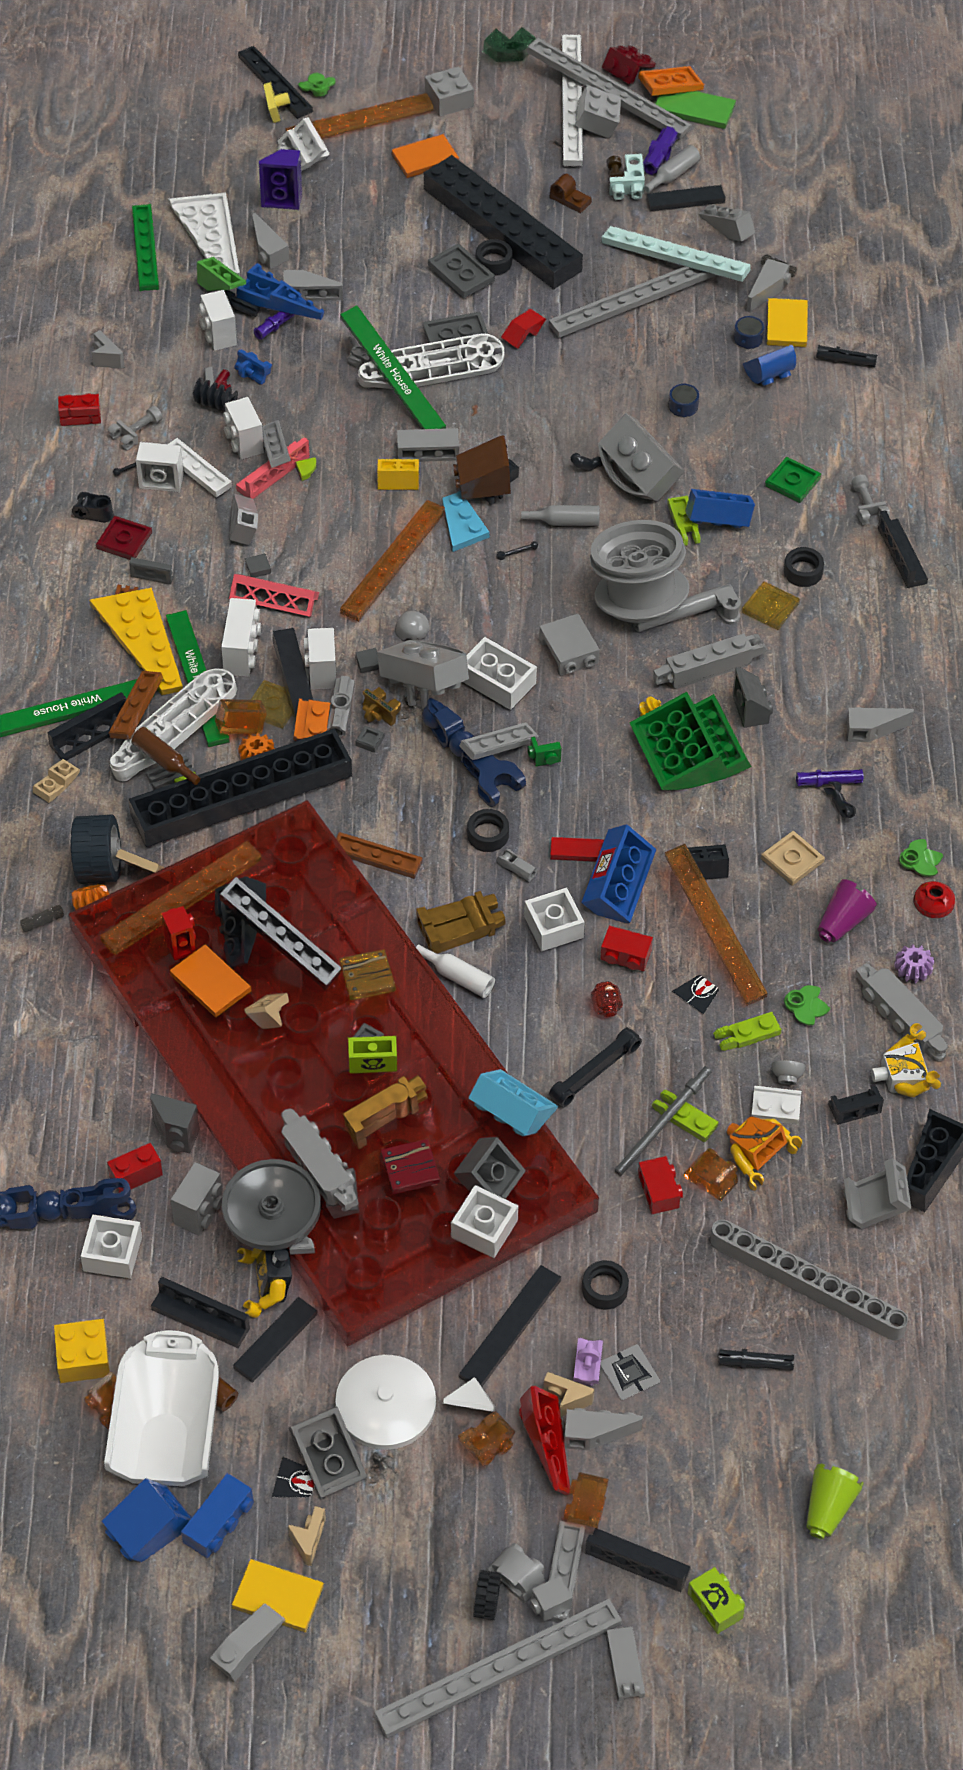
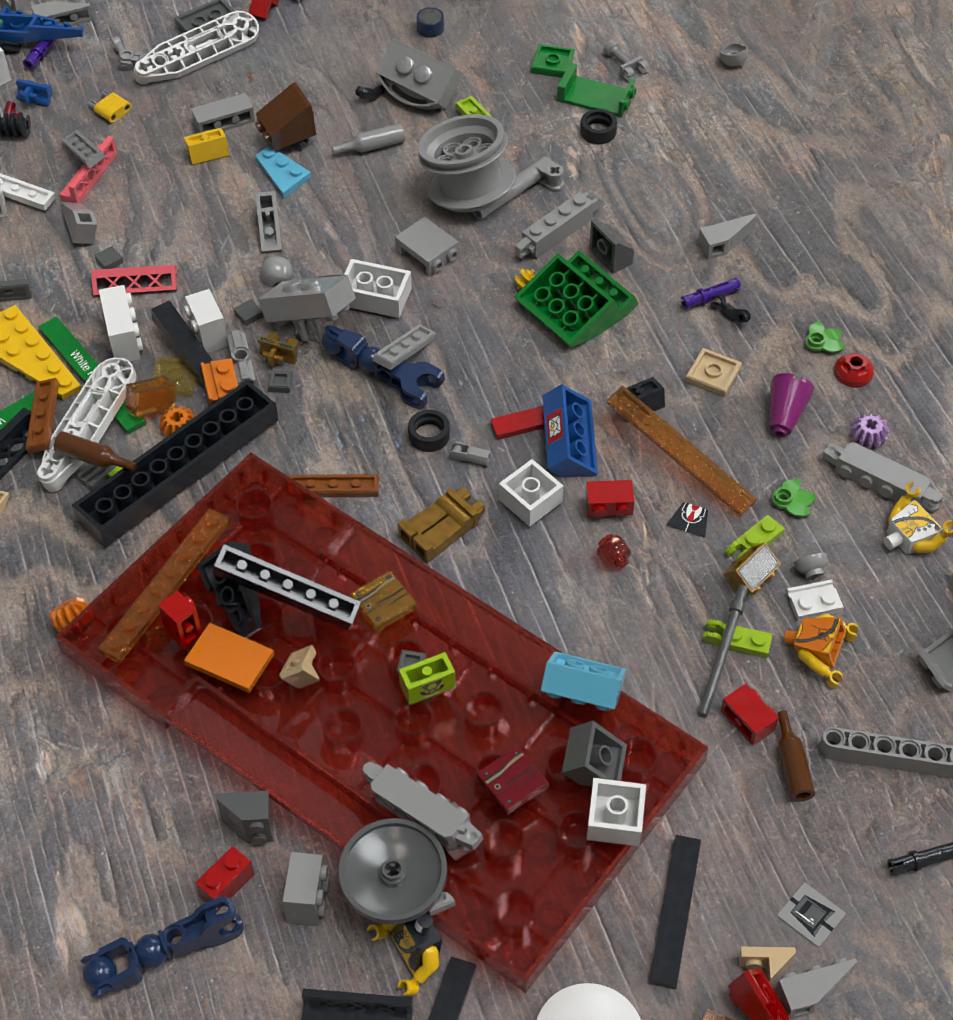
camera: 20 degrees left, 0 degrees up
(42, 918) = (25, 650): clear smoke axle -> none
(94, 848) = (57, 563): black wheel -> none
(111, 1246) = (234, 973): white brick -> none
(138, 862) = (107, 563): tan tile -> none
(243, 428) = (48, 143): white brick -> none
(306, 467) = (118, 163): lime tile -> none
(322, 404) = (110, 107): none -> yellow piece
(383, 1108) = (464, 726): pearl gold hips -> none
(391, 369) = (163, 59): green tile -> none
(392, 560) = (232, 221): clear orange plate -> none
(425, 573) = (268, 221): none -> light grey slope
(460, 972) = (465, 570): white piece -> none
(470, 1396) = (674, 1001): white slope -> none
(501, 555) = (329, 189): black hinge -> none
(545, 753) = (448, 347): green bracket -> none
(564, 1092) = (616, 653): black piece -> none
(588, 1361) = (772, 919): lavender hips -> none
(605, 1268) = (750, 815): black tyre -> none
(678, 1240) = (794, 762): none -> reddish brown piece
(713, 1173) = (791, 684): clear orange cylinder -> none
(720, 508) = (506, 97): blue brick -> none
(728, 1056) = (753, 568): none -> brick
(770, 605) = (585, 165): clear yellow tile -> none
(817, 528) = (594, 94): none -> green panel
(856, 1106) = (887, 575): black hinge -> none
(901, 551) = (672, 92): black fence -> none

